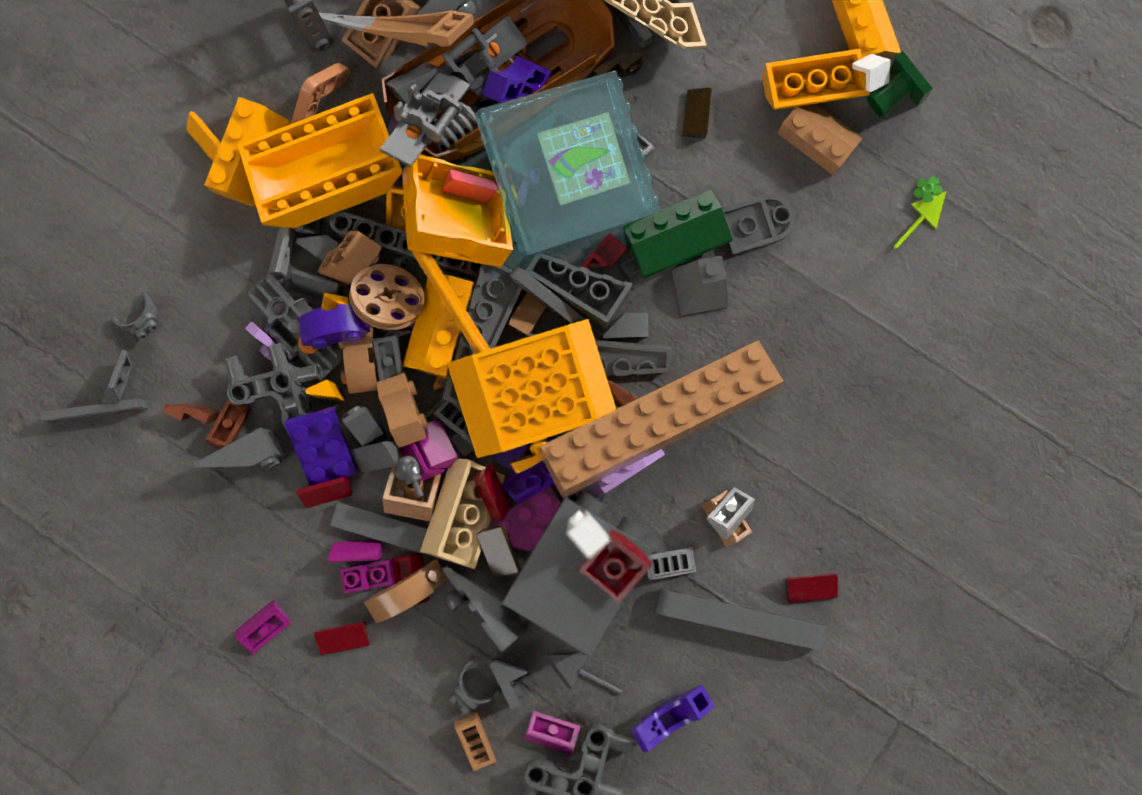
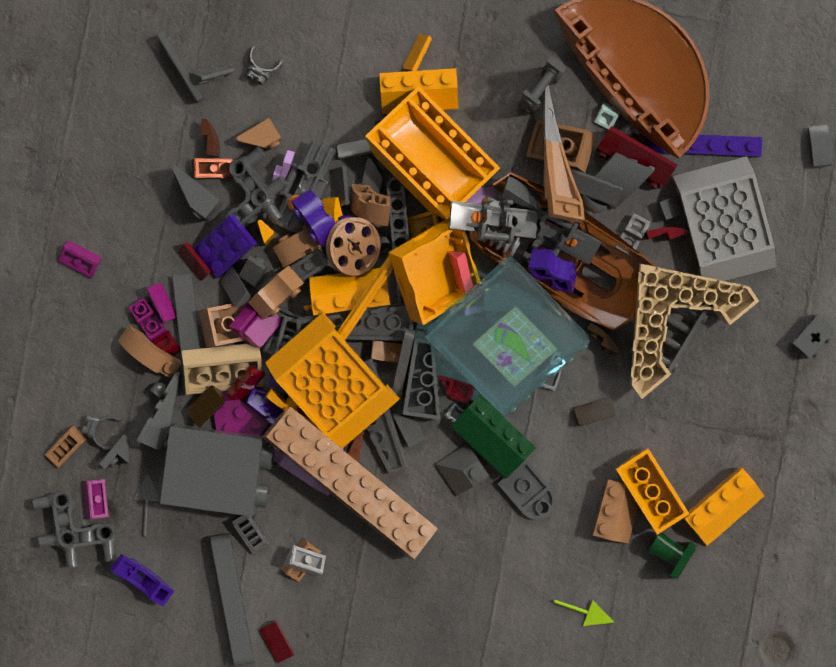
camera: 65 degrees right, 5 degrees up
(213, 349) = (261, 135): none -> medium nougat slope
(318, 87) = (485, 124): nougat beam -> none
(342, 638) = (96, 320): dark red slope -> none
(409, 471) = (234, 318): dark grey piece -> none
(587, 532) = (242, 466): white brick -> none
(616, 566) = (230, 495): dark red slope -> none
(876, 70) = (675, 530): white panel -> none
(926, 189) = (609, 607): bright green plant -> none

